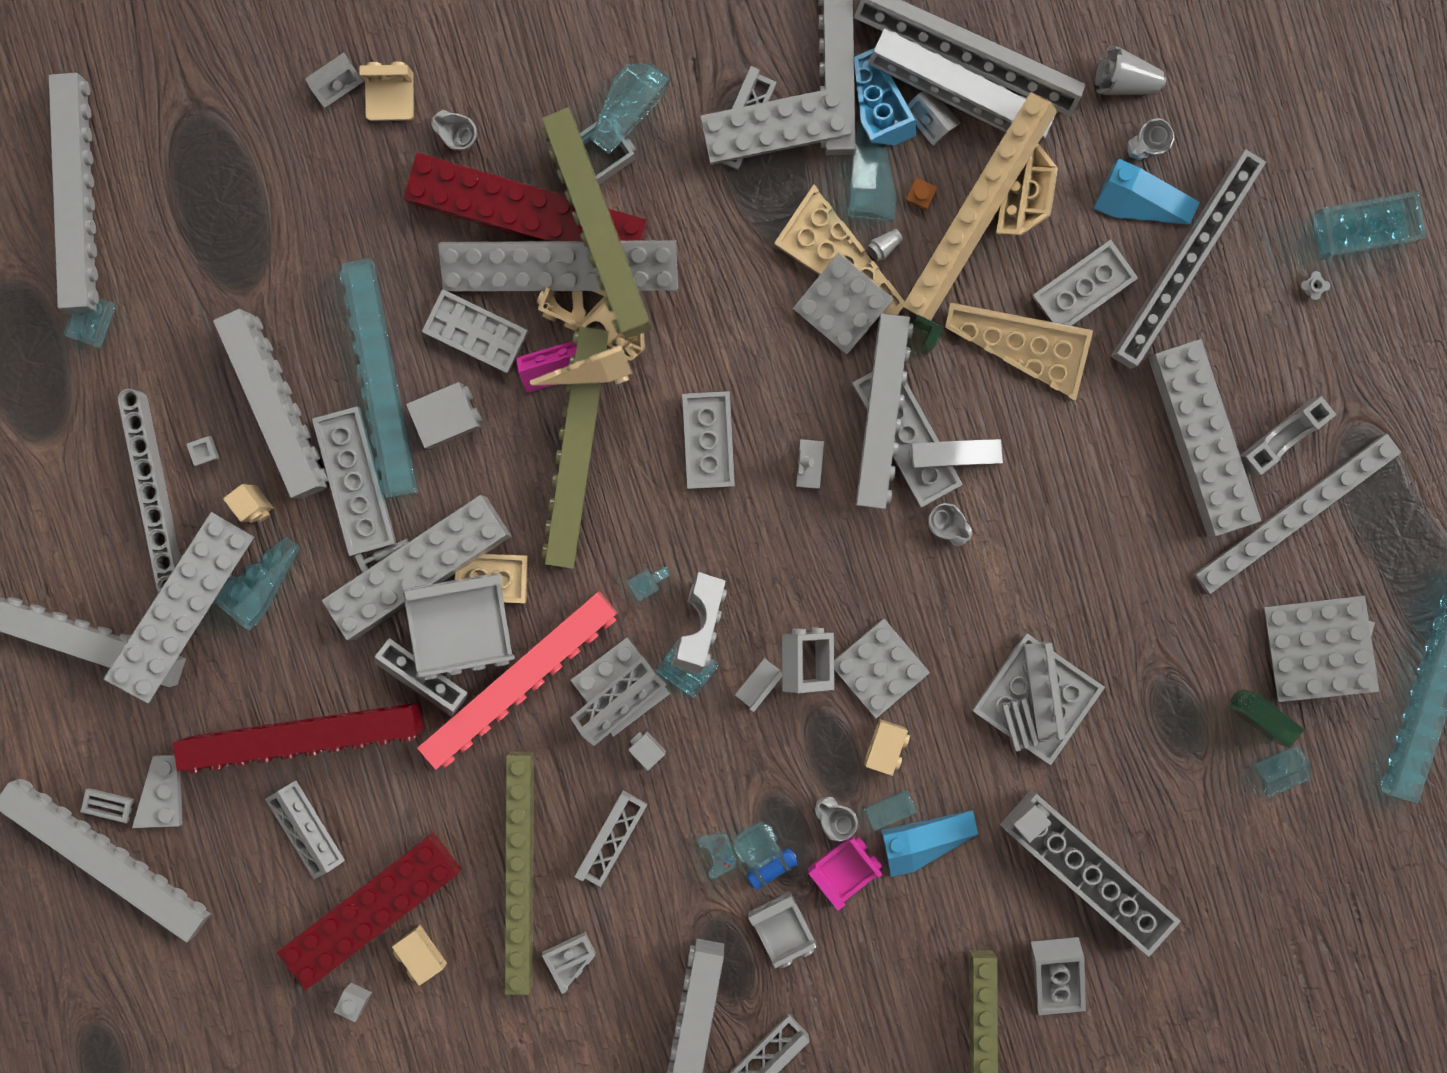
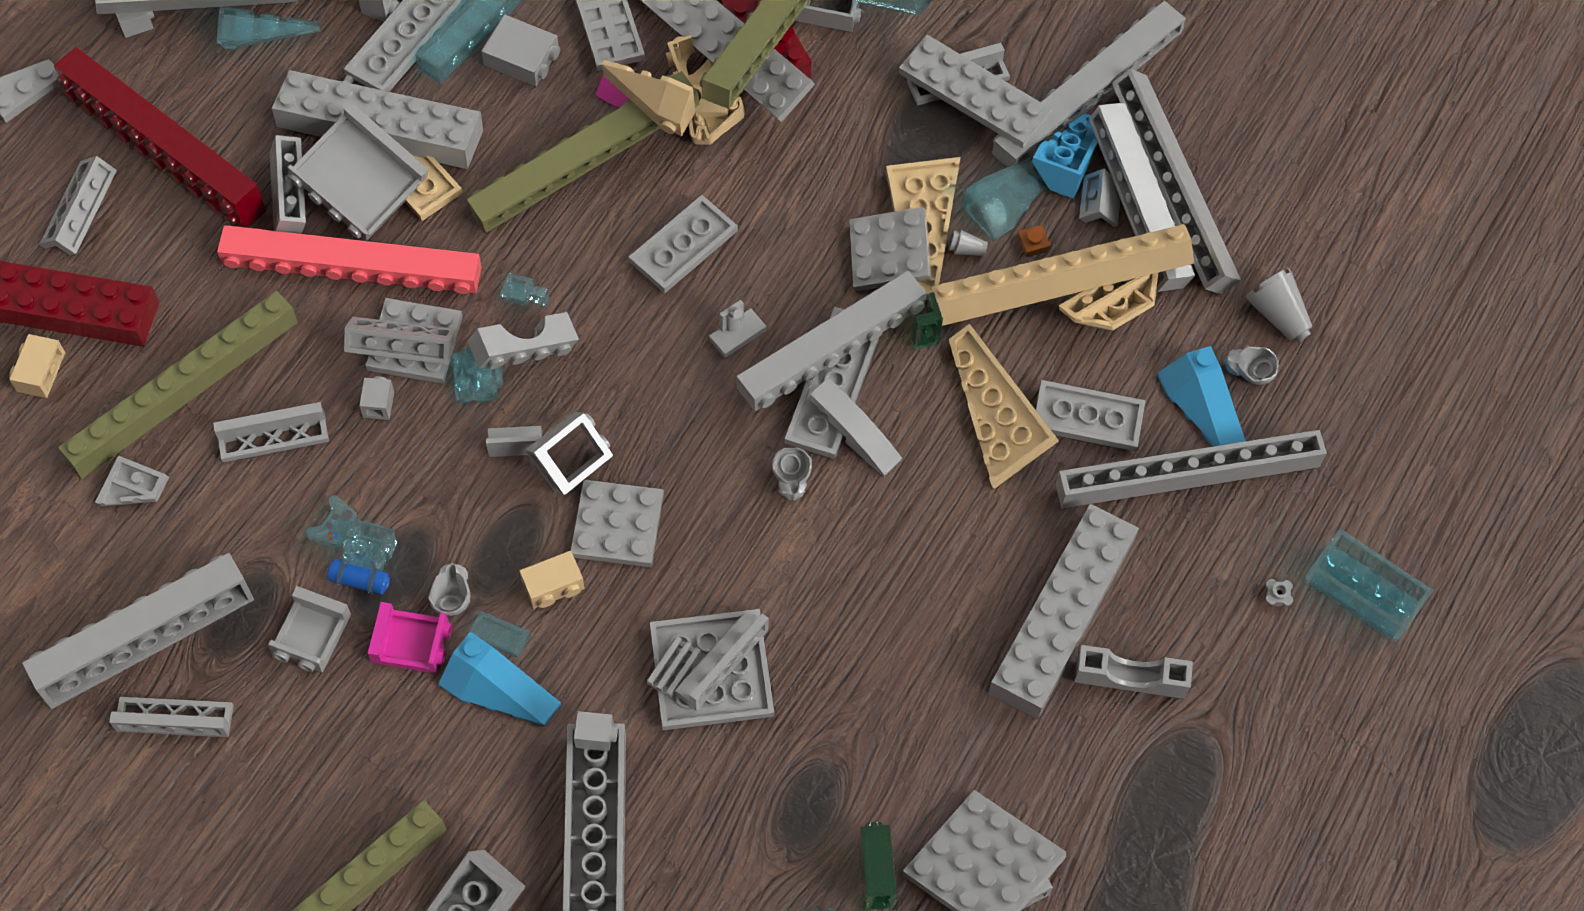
camera: 40 degrees right, 25 degrees down
(1297, 513) = (1082, 748): light grey plate -> none

